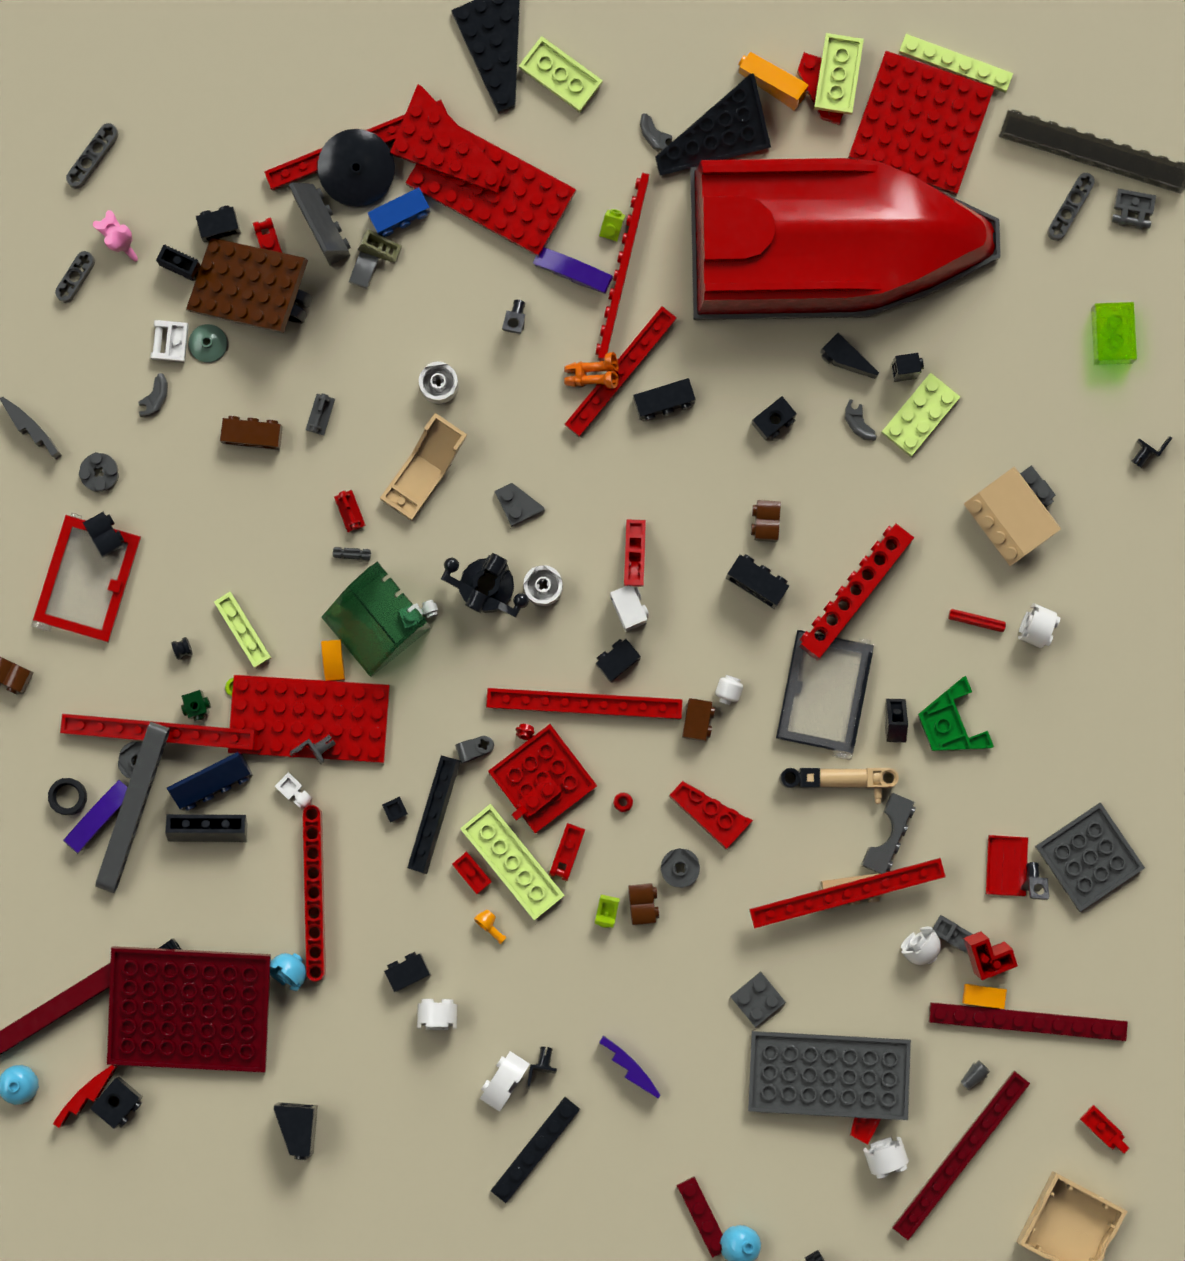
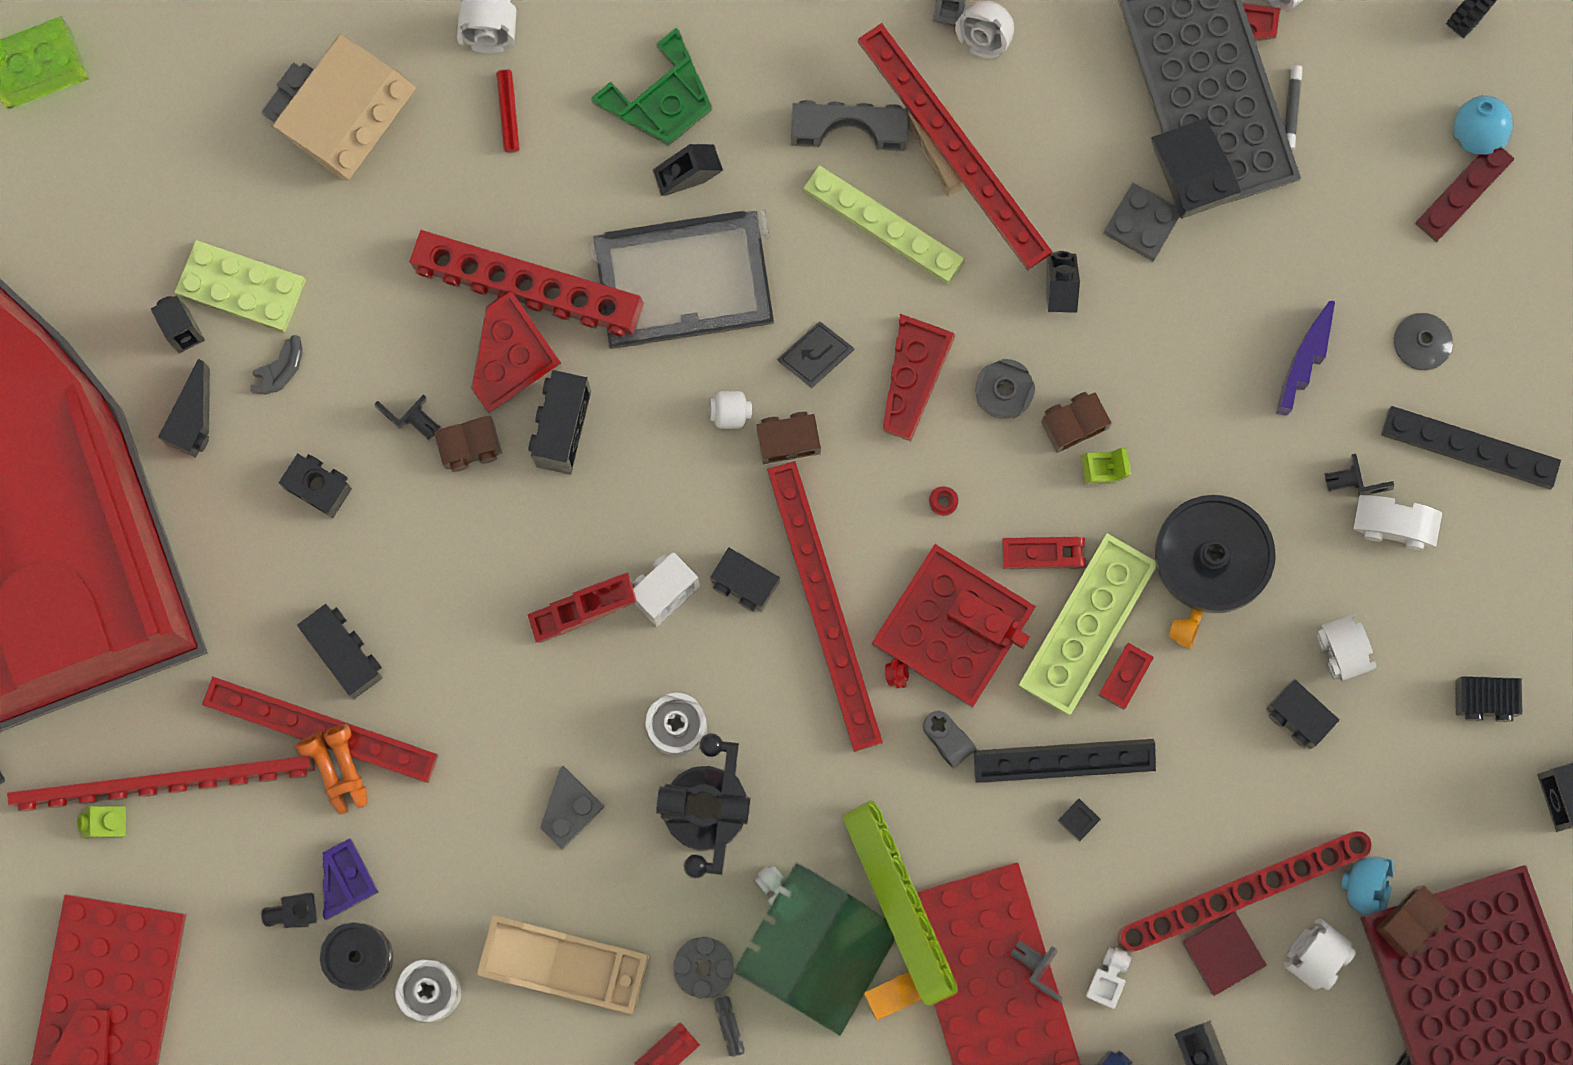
camera: 110 degrees left, 5 degrees down
(255, 983) = (1413, 922): none -> reddish brown brick
(258, 921) = (1319, 955): none -> white brick
(282, 866) = (1224, 953): none -> dark red tile
(374, 1093) = (1488, 697): none -> black brick
(385, 680) = (900, 903): none -> lime beam
(396, 540) = (721, 968): none -> dark grey plate
(486, 347) = (340, 949): none -> black wheel
(524, 357) = (345, 879): none -> dark purple wing
(528, 976) = (1229, 532): none -> black dish
(574, 270) = (190, 853): dark purple slope -> none
(612, 1138) = (1411, 347): none -> dark grey dish
(736, 930) = (1062, 282): none -> black slope
(744, 756) = (815, 354): none -> dark grey piece
(778, 1043) = (1195, 168): none -> black slope
(796, 493) = (414, 416): none -> black bracket
(799, 1127) = (1293, 104): none -> dark grey bar
(814, 565) = (509, 353): none -> red plate
(816, 832) = (883, 224): none -> yellowish green plate
(841, 779) = (807, 244): tan piece -> none

